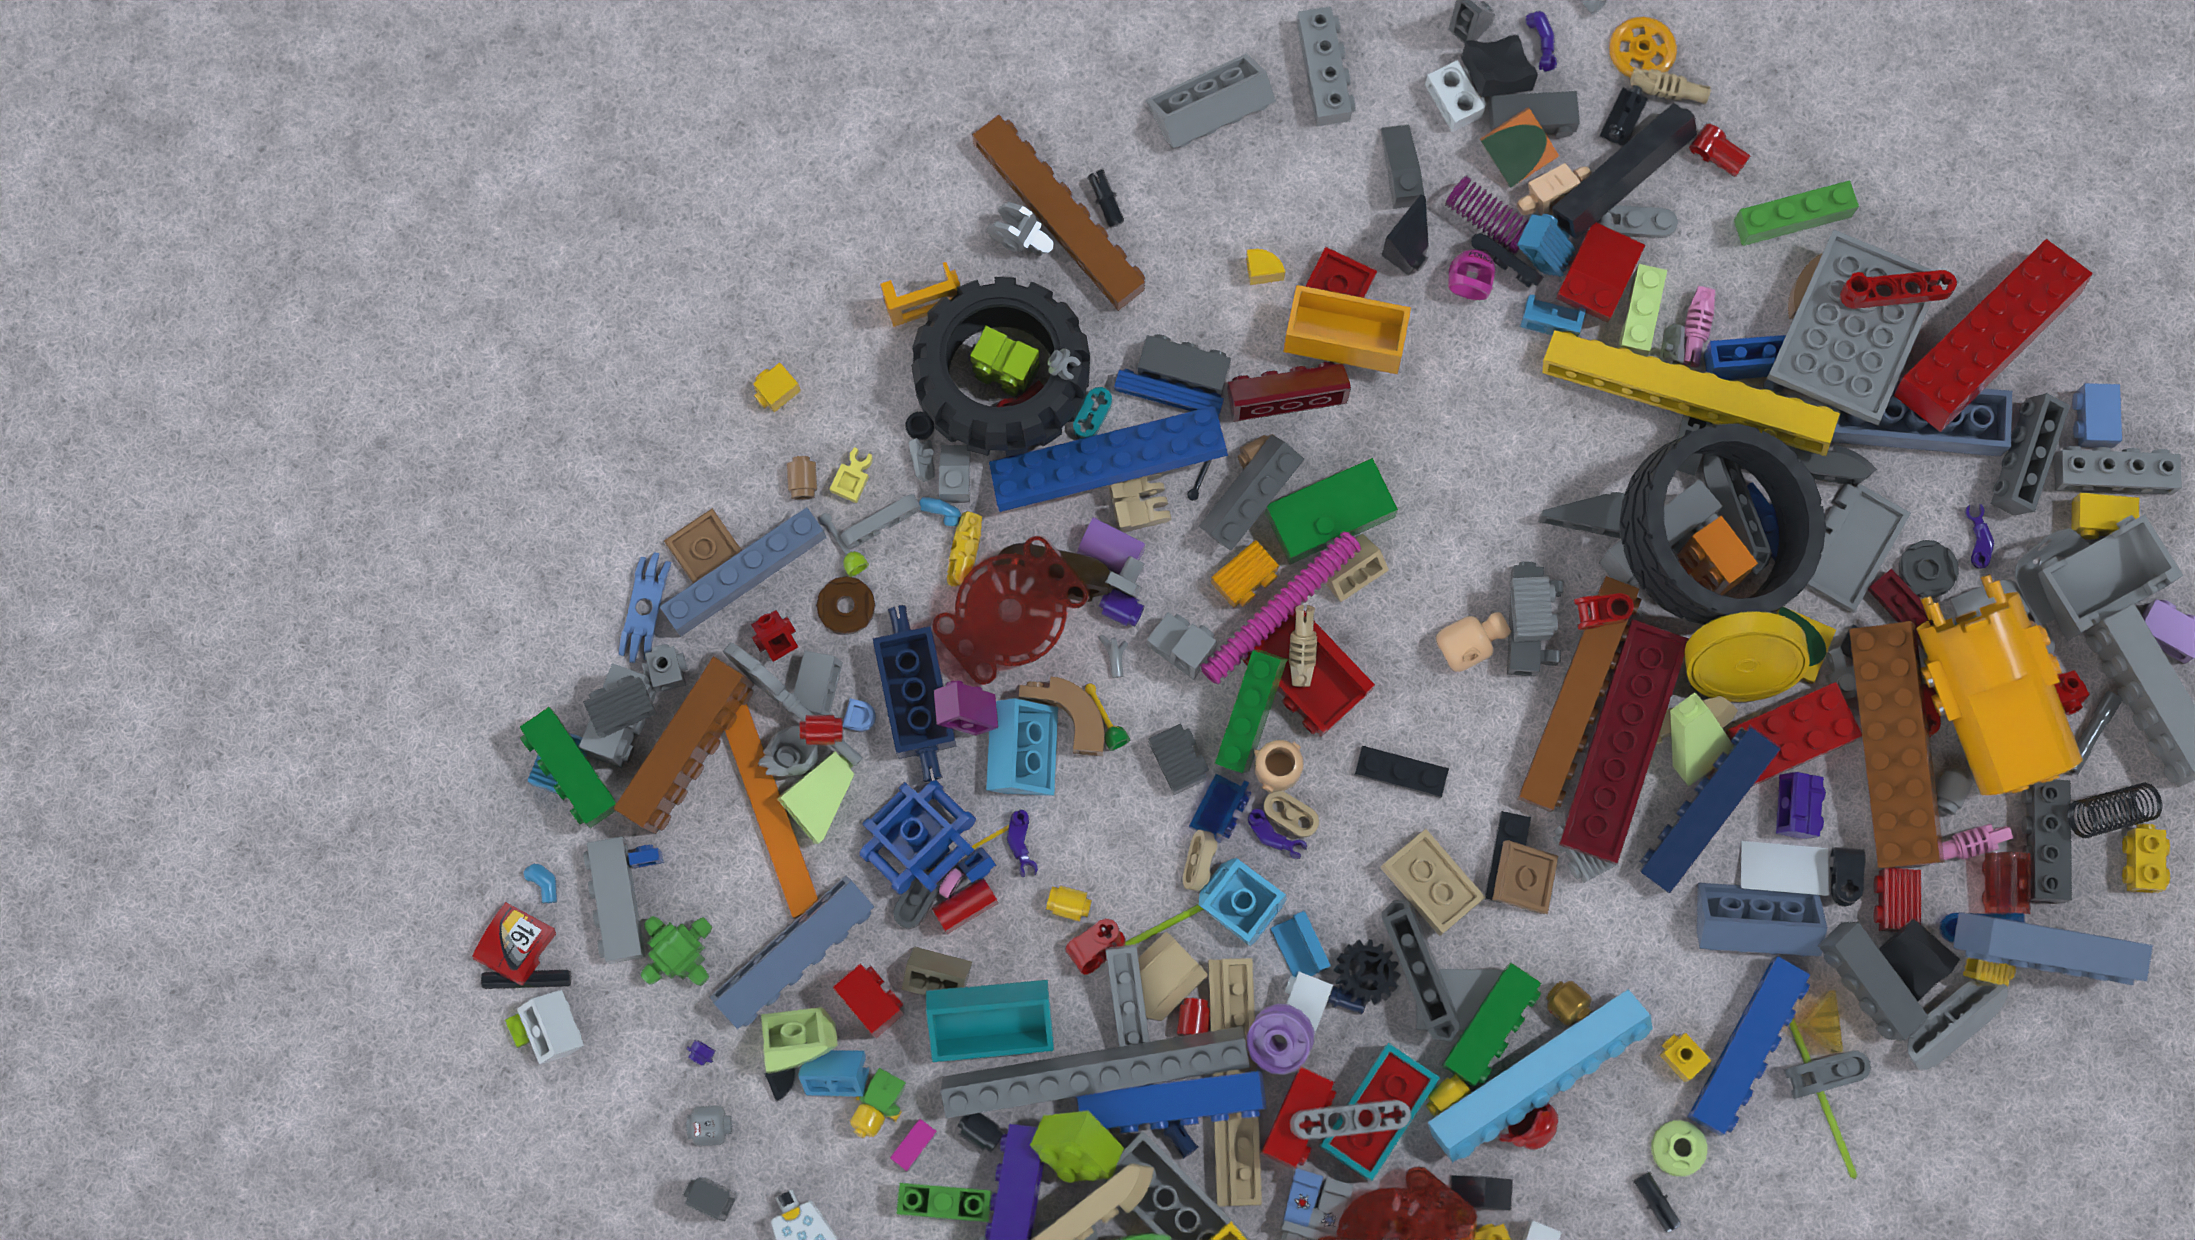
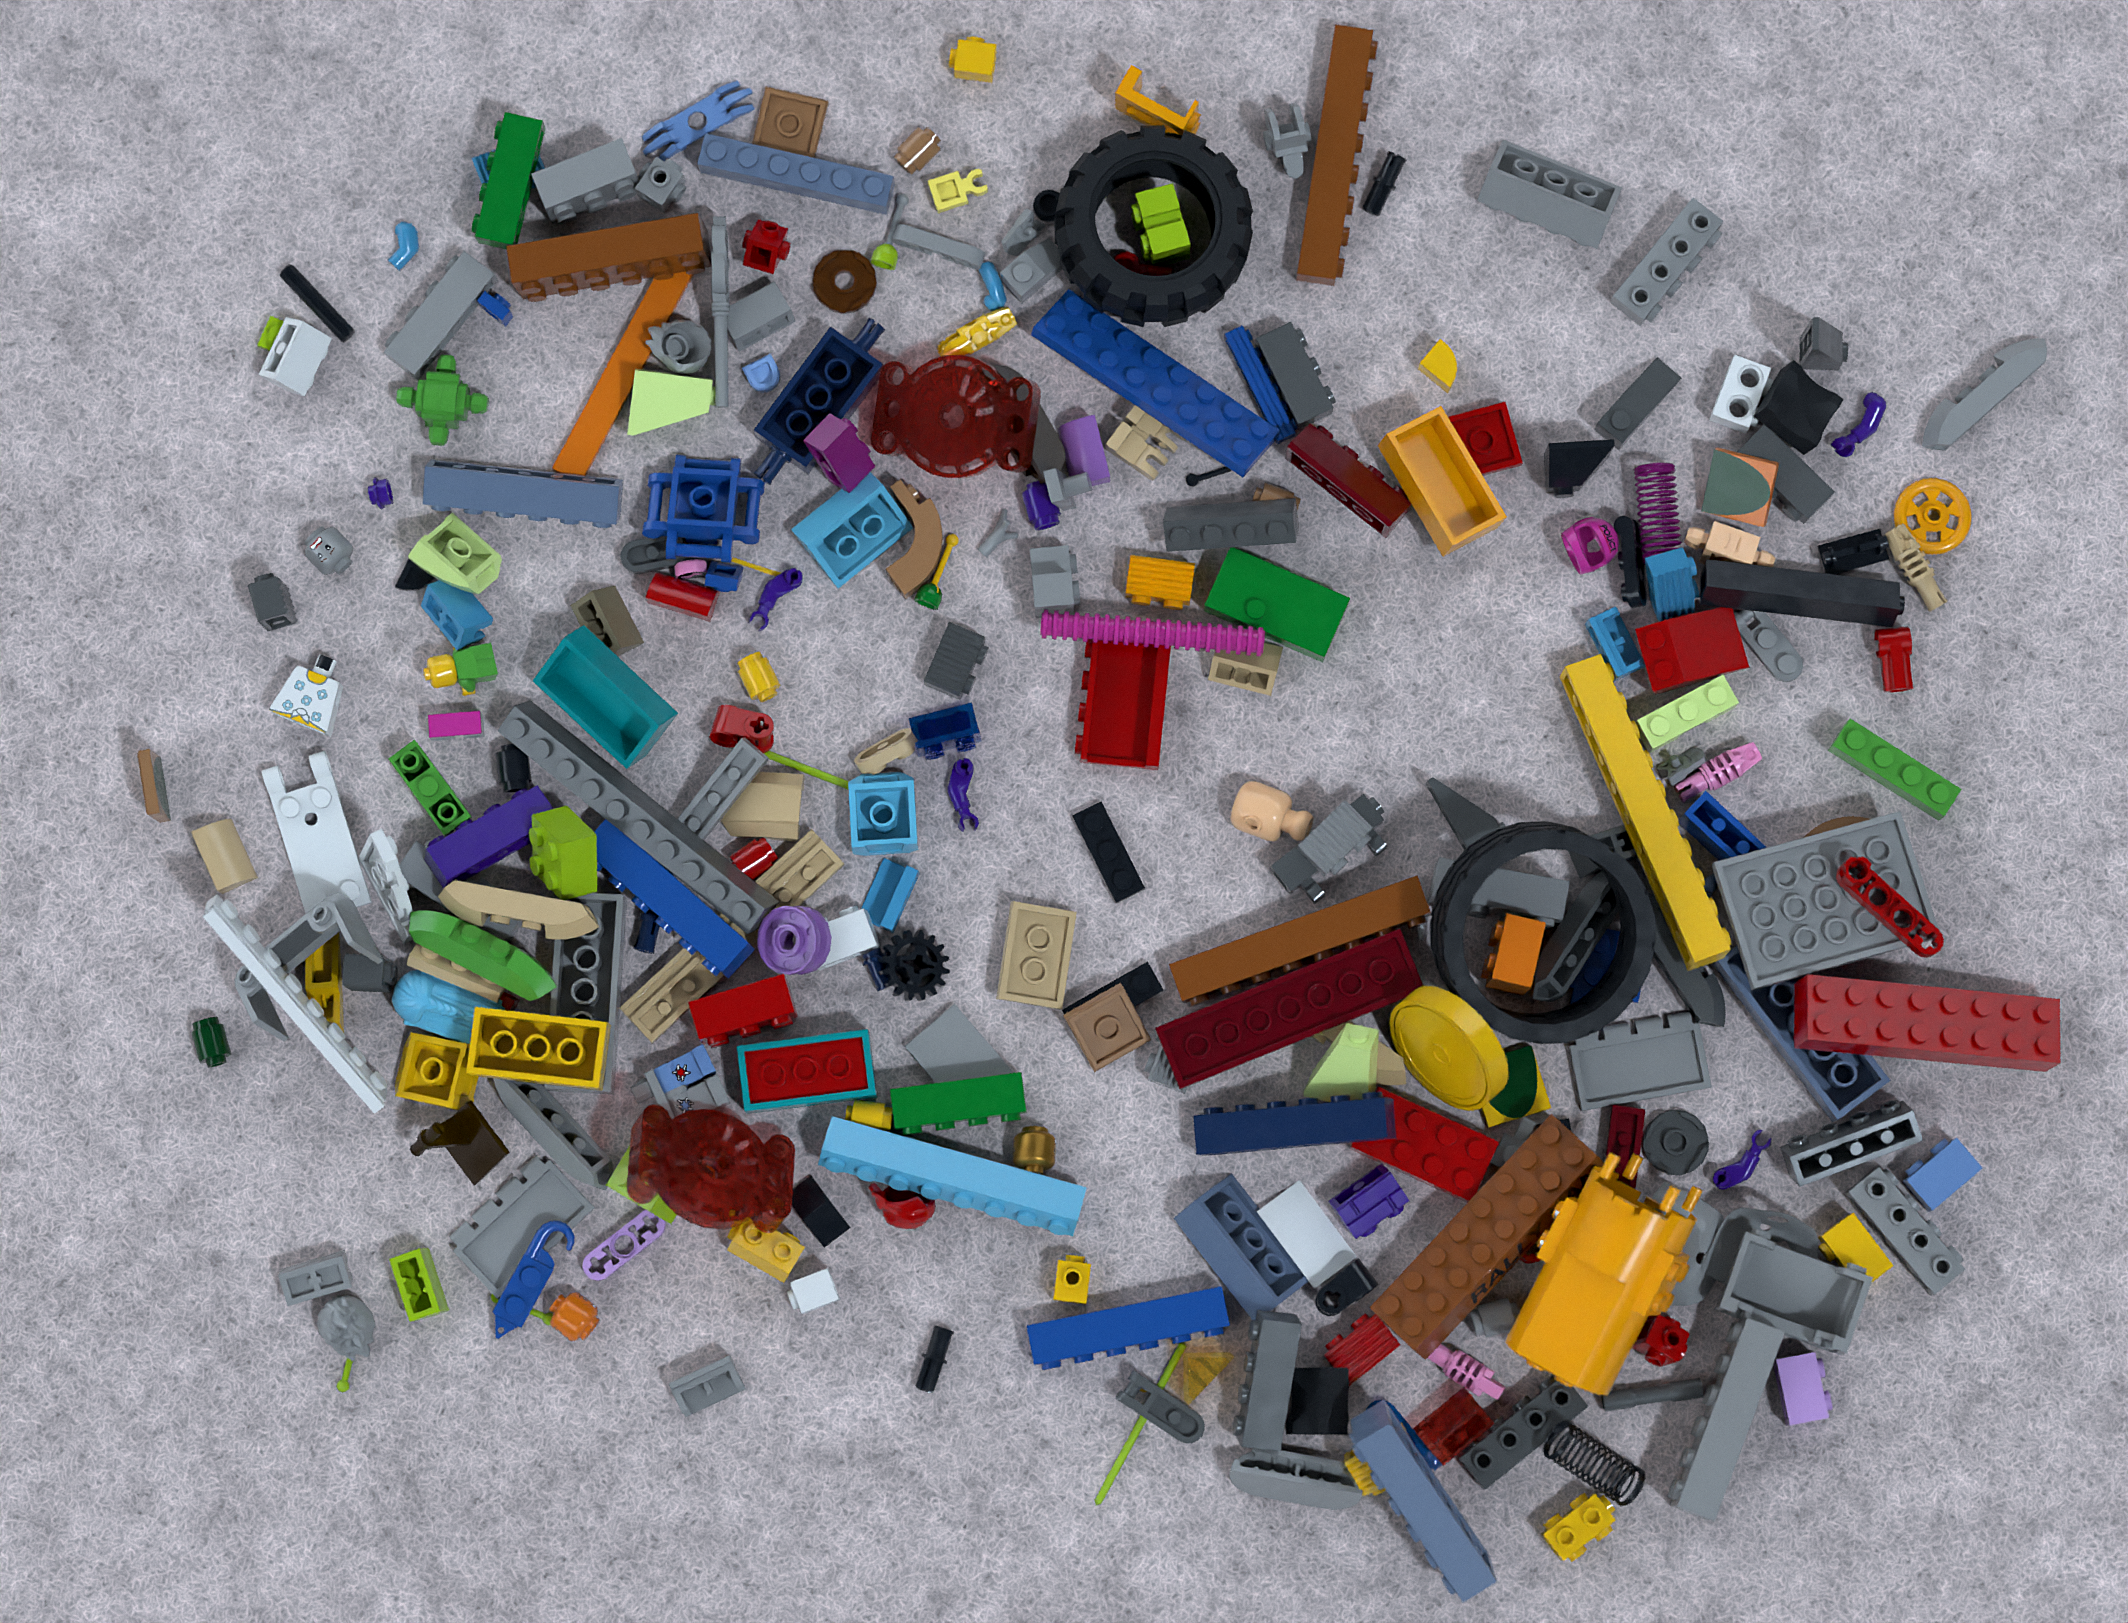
camera: 50 degrees right, 5 degrees up
(513, 943) = (335, 267): red slope -> none
(619, 706) = (590, 175): dark grey brick -> none
(821, 730) = (717, 353): red brick -> none
(868, 1001) = (537, 587): red brick -> none
(1058, 363) = (1188, 269): light grey plate -> none
(1098, 416) = (1185, 329): teal beam -> none
(1250, 711) = (1044, 684): green brick -> none
(1278, 765) = (1017, 745): light nougat piece -> none
(1291, 813) = (992, 792): tan plate -> none
(1303, 647) = (1136, 680): tan hinge -> none
(1350, 1119) = (772, 1052): light grey beam -> none
(1421, 970) = (952, 1006): dark grey brick -> none
(1601, 610) = (1380, 895): red piece -> none
(1663, 1148) = (1008, 1354): yellowish green piece -> none

